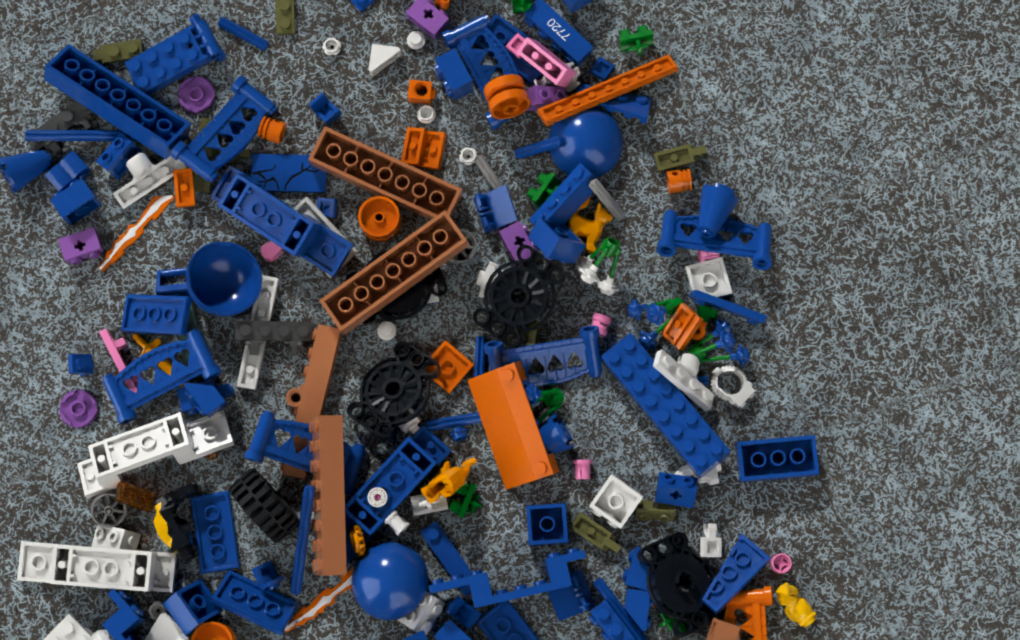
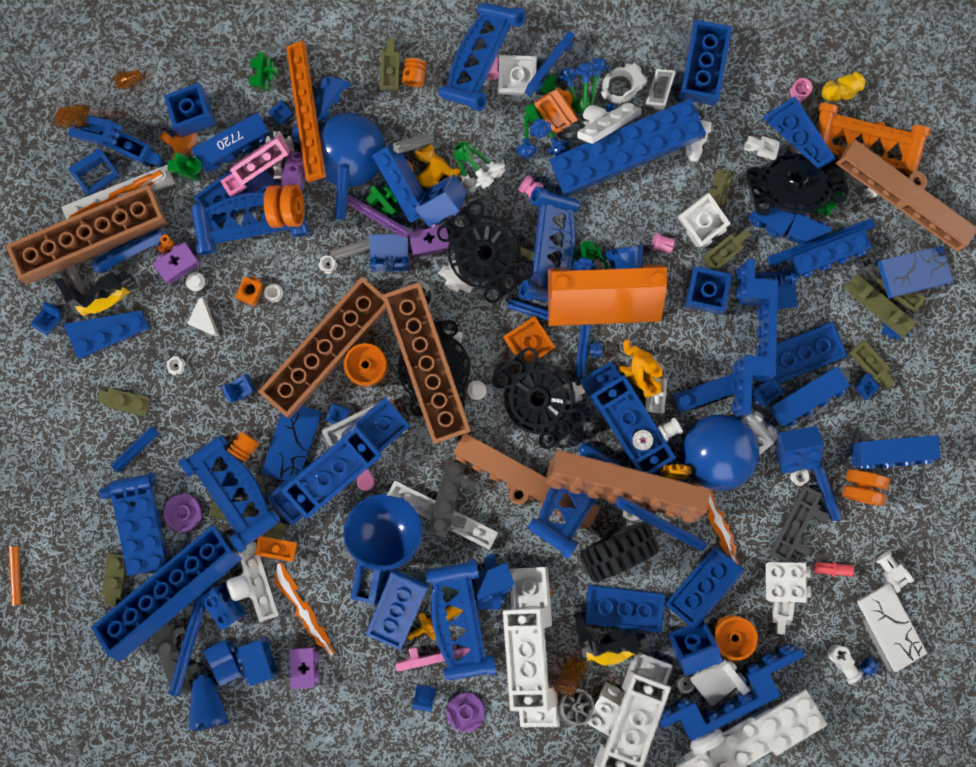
camera: 80 degrees left, 5 degrees up
(267, 576) = (682, 569): blue bracket -> none
(424, 148) = (306, 304): orange slope -> none
(454, 74) = (244, 253): blue brick -> none
(461, 507) = (665, 360): green hips -> none
(526, 187) = (377, 217): none -> medium lavender axle
(676, 490) = (708, 162): blue brick -> none
(715, 207) = (453, 45): blue cone -> none
(739, 424) = (660, 88): none -> slope

